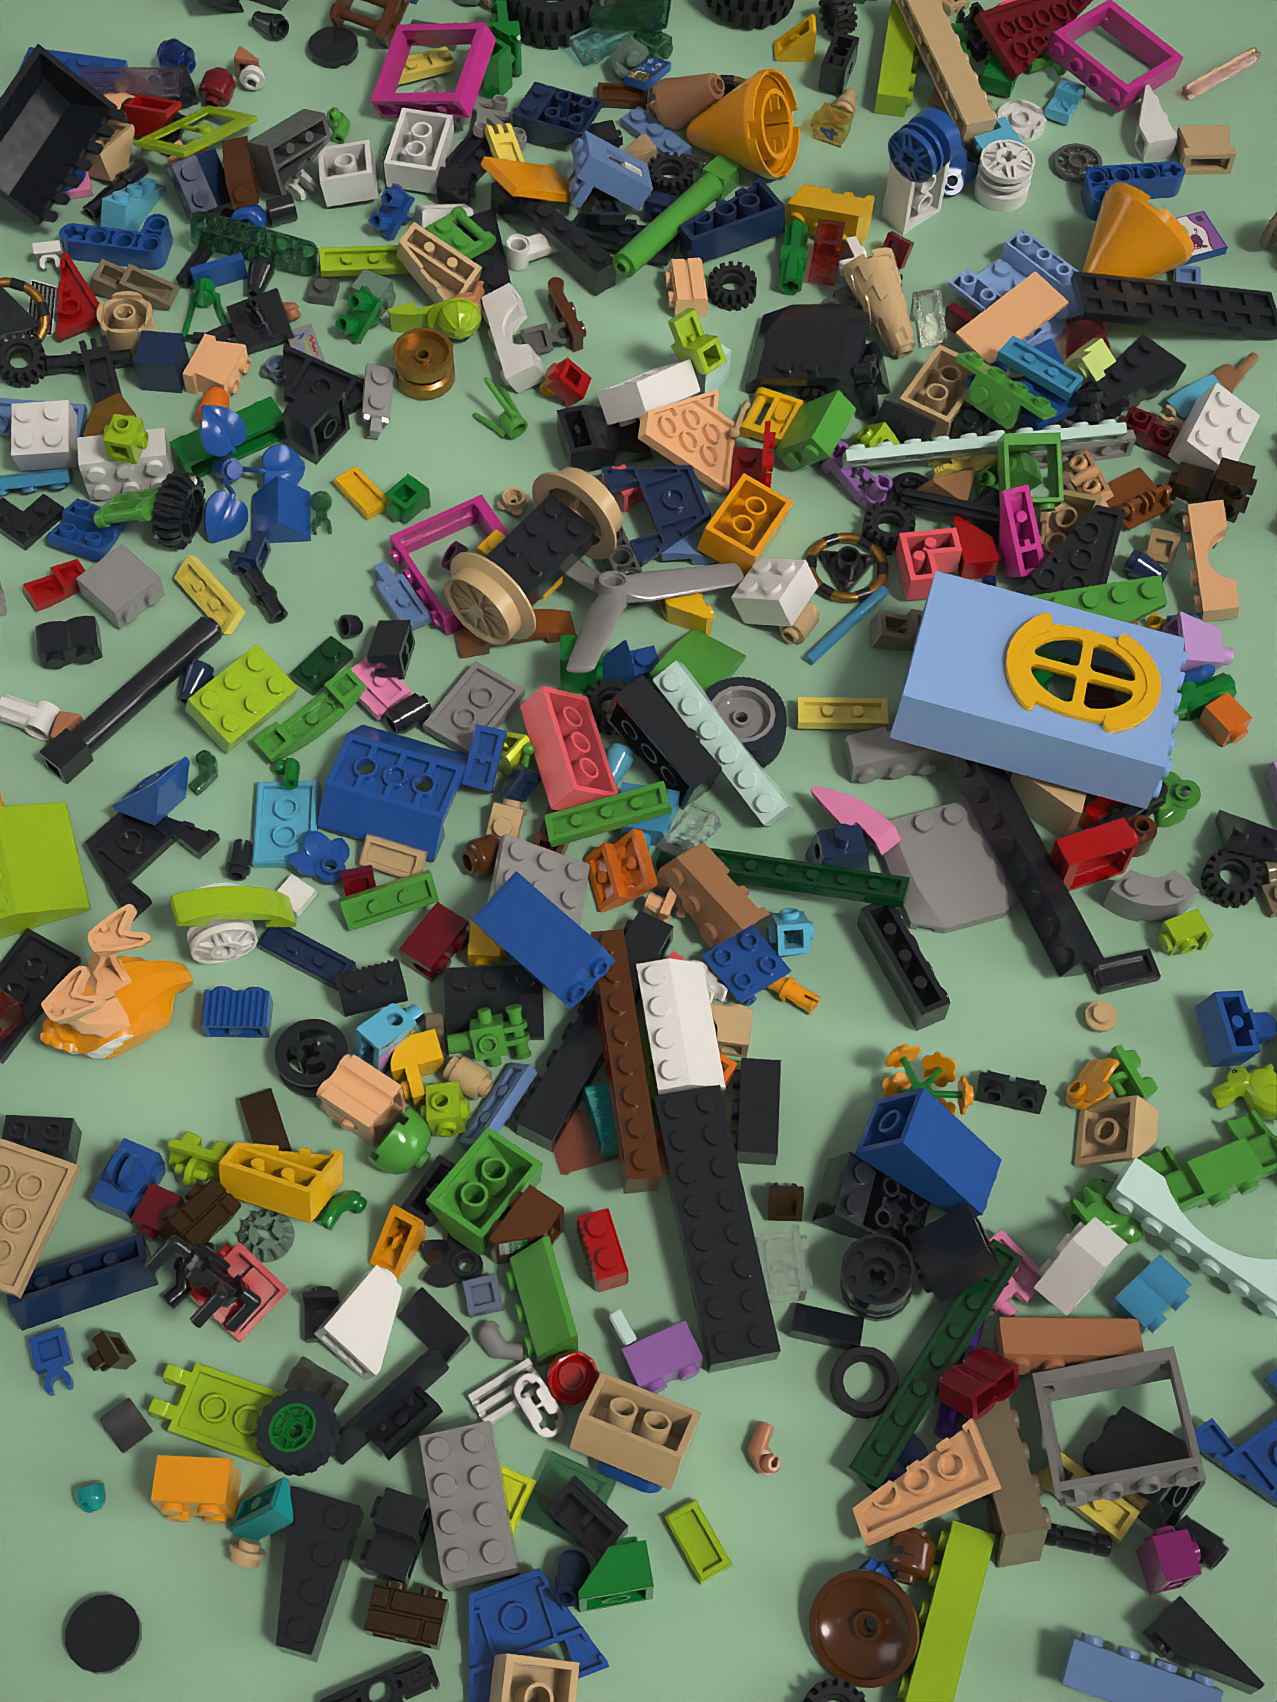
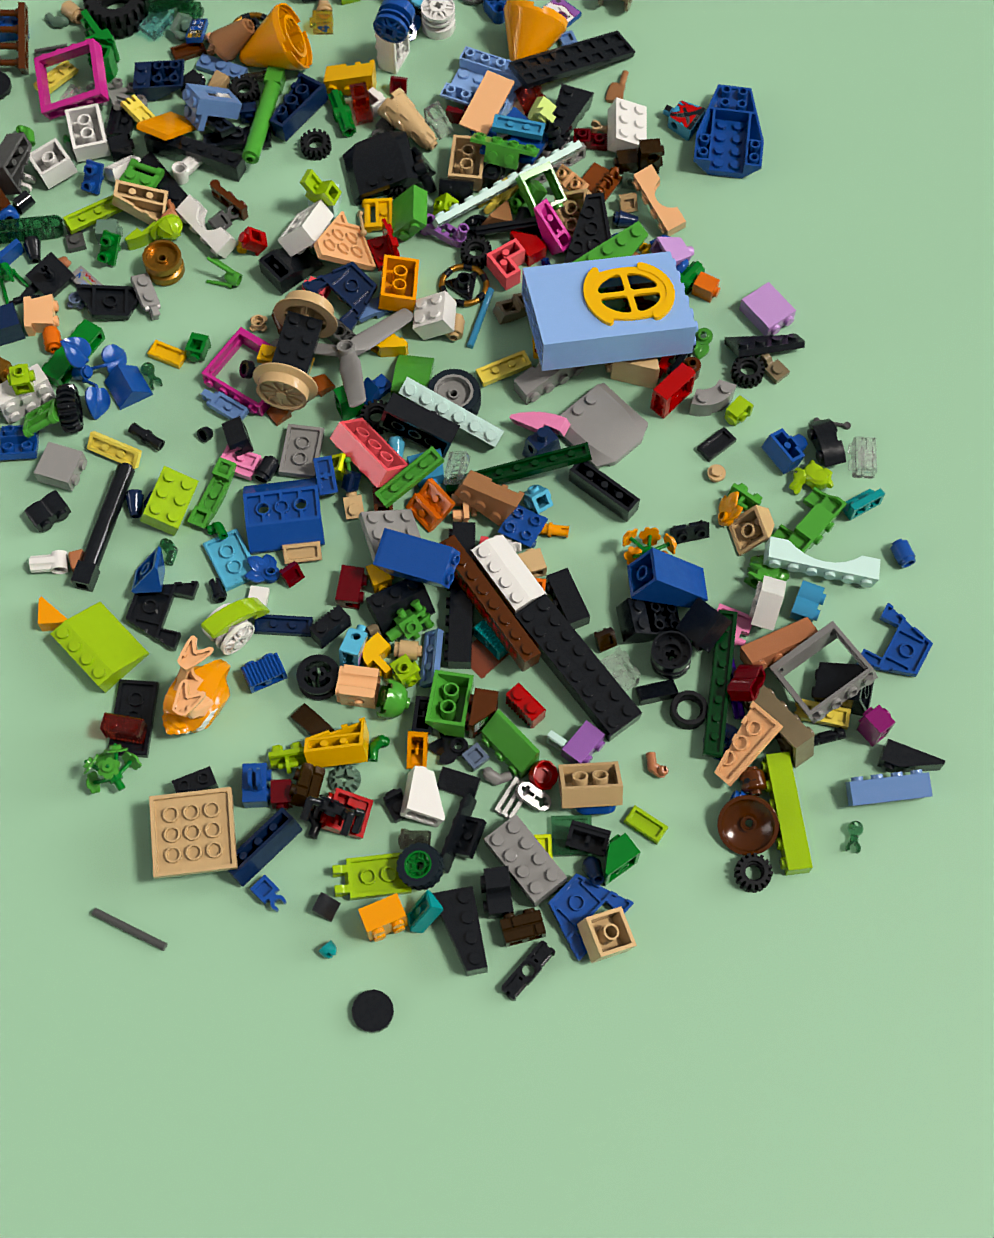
camera: 25 degrees left, 5 degrees up
(55, 587) = (21, 480): red slope -> none
(111, 1352) = (297, 875): dark brown tile -> none
(246, 1552) = (424, 937): tan plate -> none
(255, 554) = (127, 417): dark blue bracket -> none
(316, 423) = (120, 324): black slope -> none
(321, 665) = (201, 462): dark green plate -> none
(388, 900) = (312, 576): bright green plate -> none
(480, 856) = (351, 529): reddish brown head -> none
(687, 286) = (291, 156): light nougat brick -> none
(1028, 867) = (642, 409): black brick -> none
(1185, 399) = (601, 111): medium azure slope -> none
(1210, 1544) = (891, 707): black cone -> none

